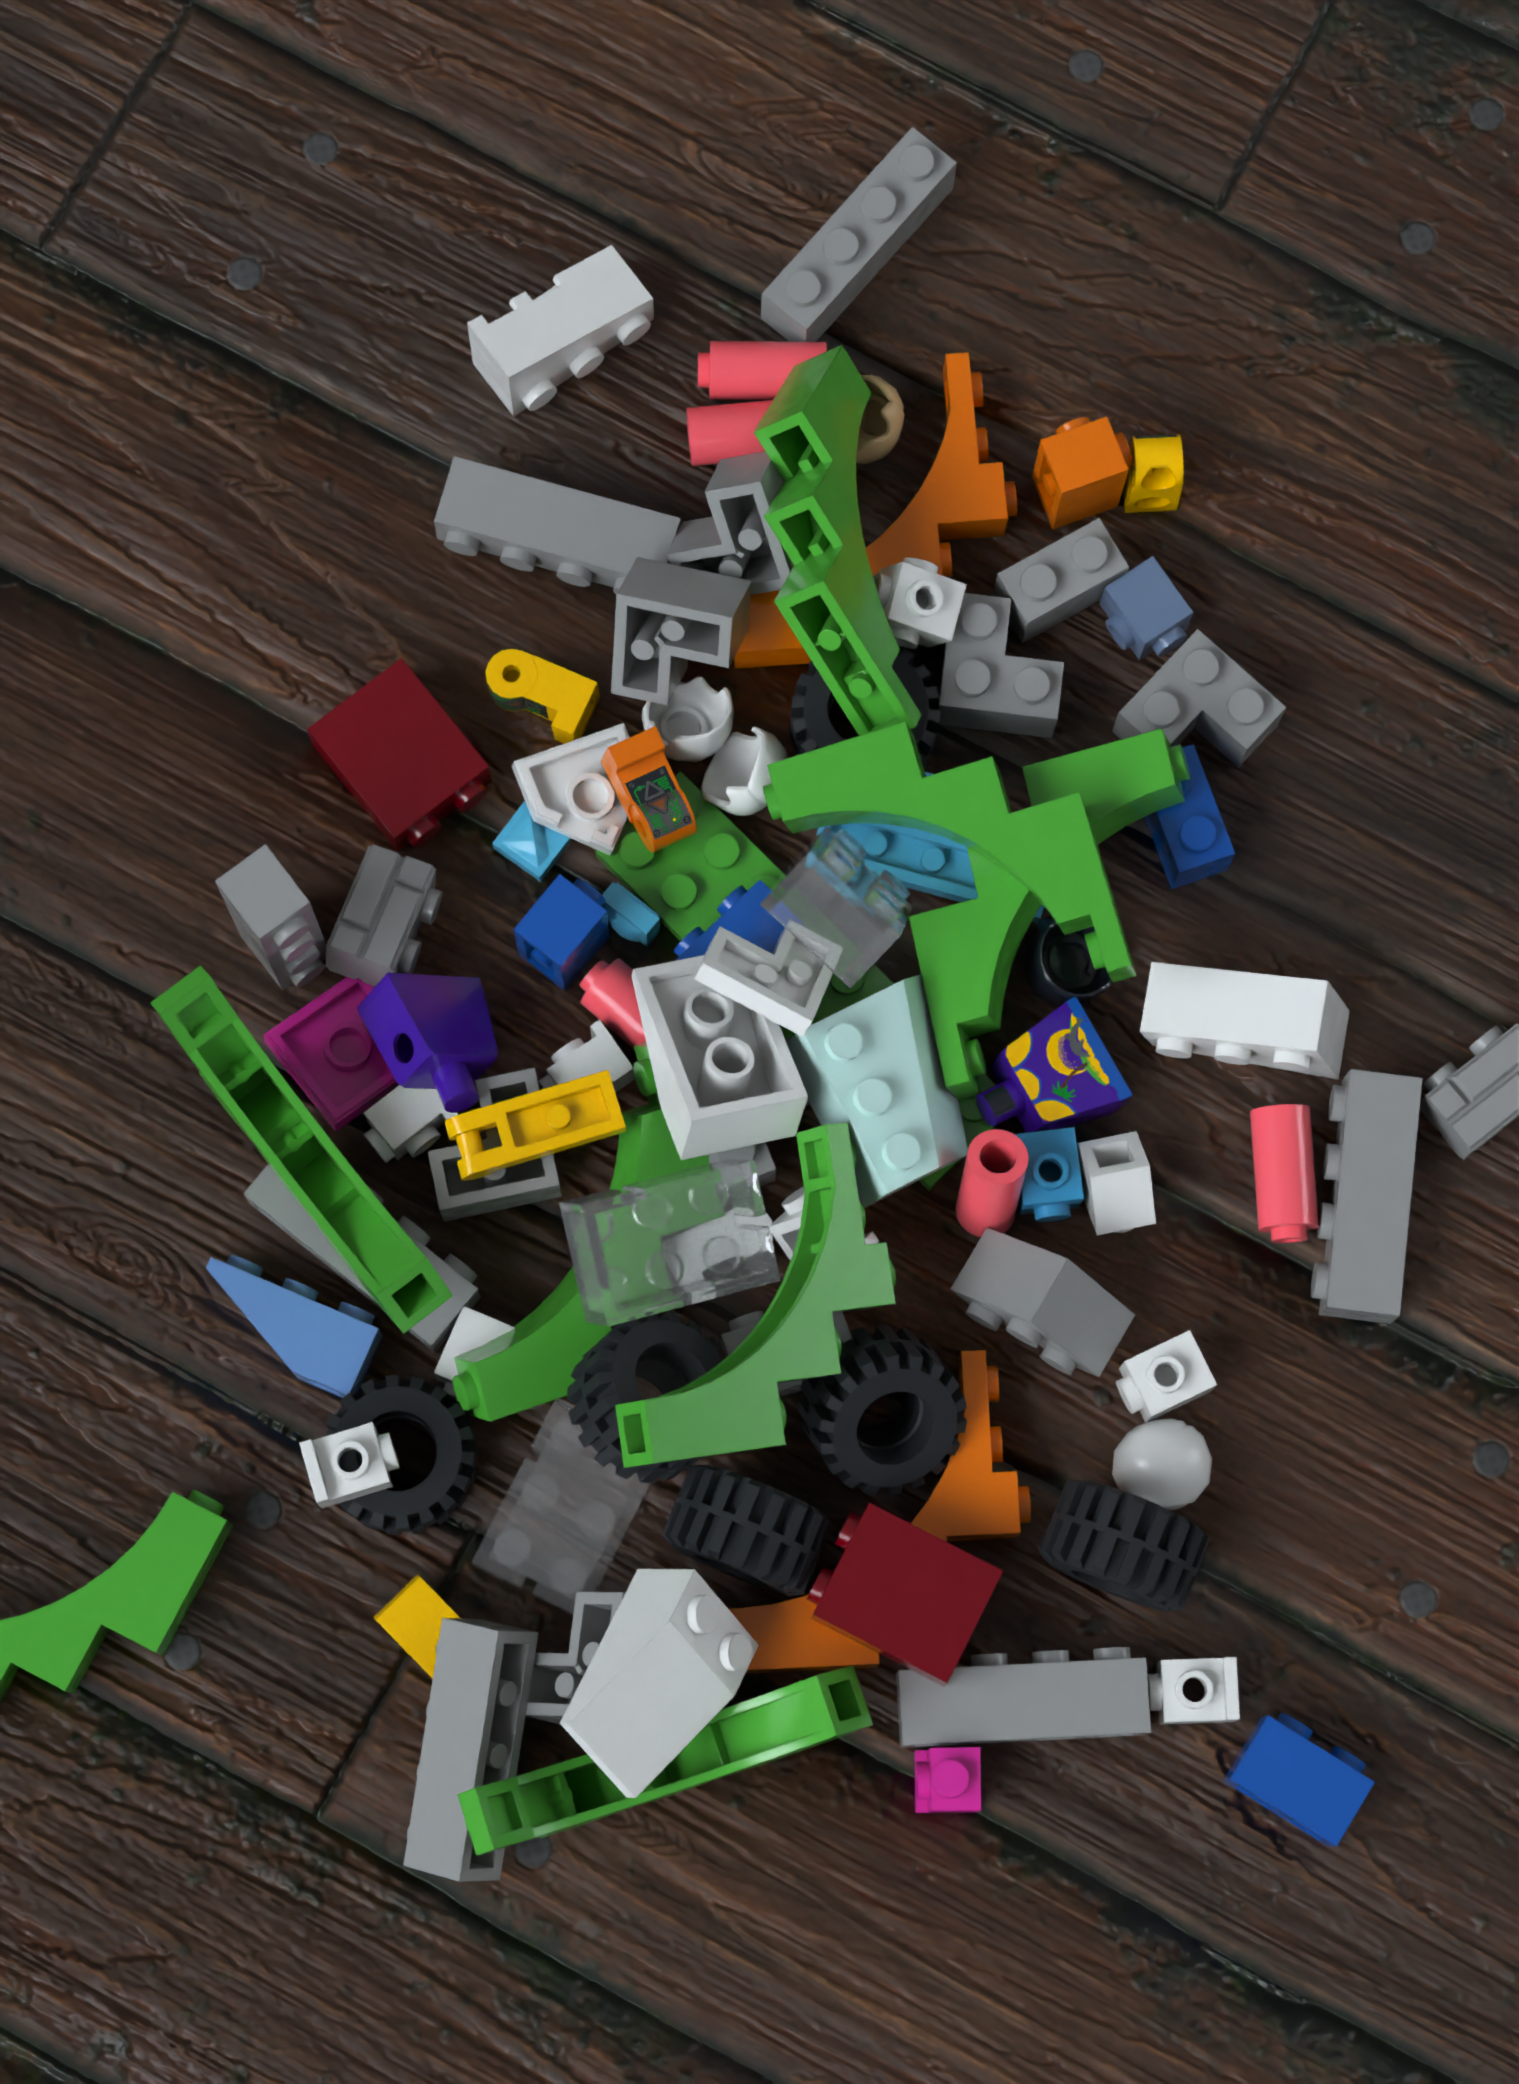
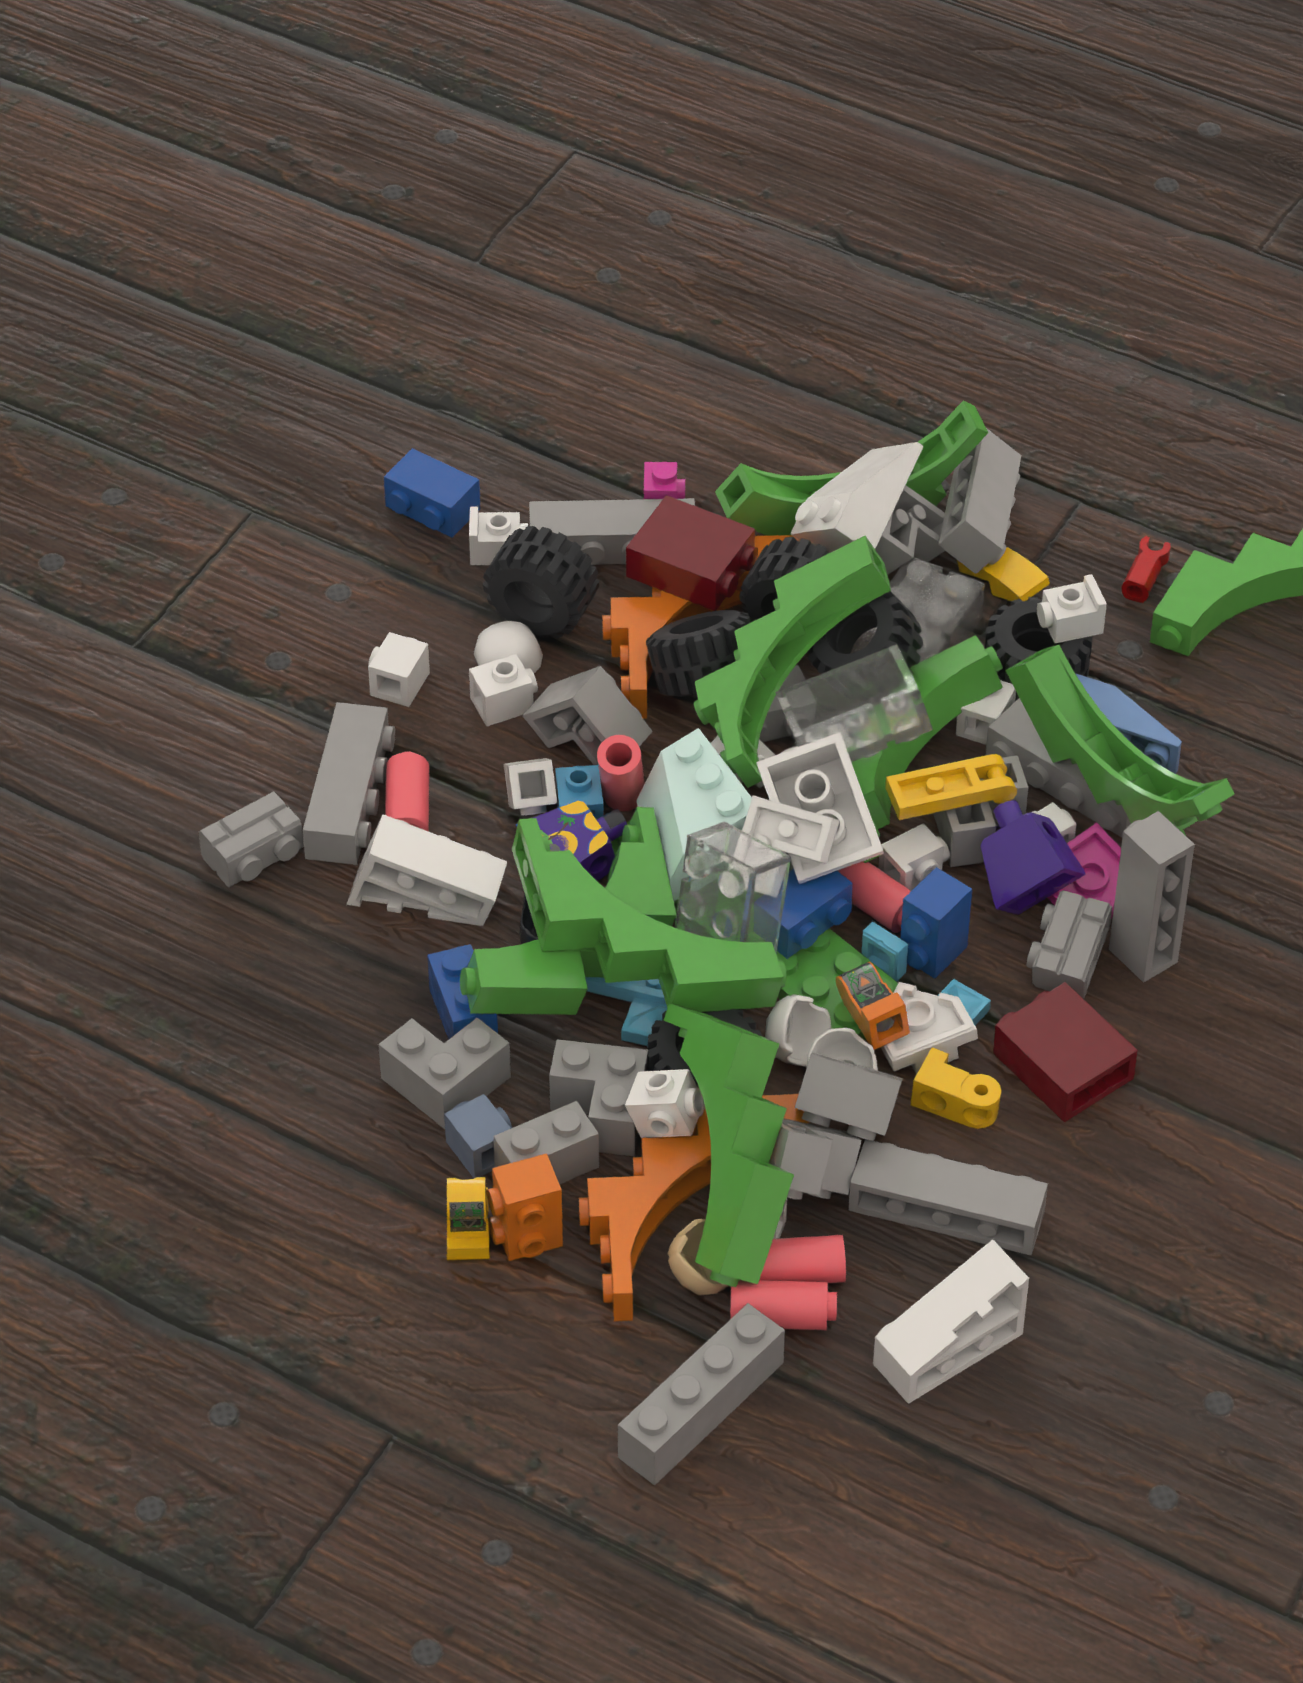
camera: 175 degrees left, 30 degrees down
(230, 1652) = (1144, 571): none -> red bar
(1318, 1417) = (398, 669): none -> white brick

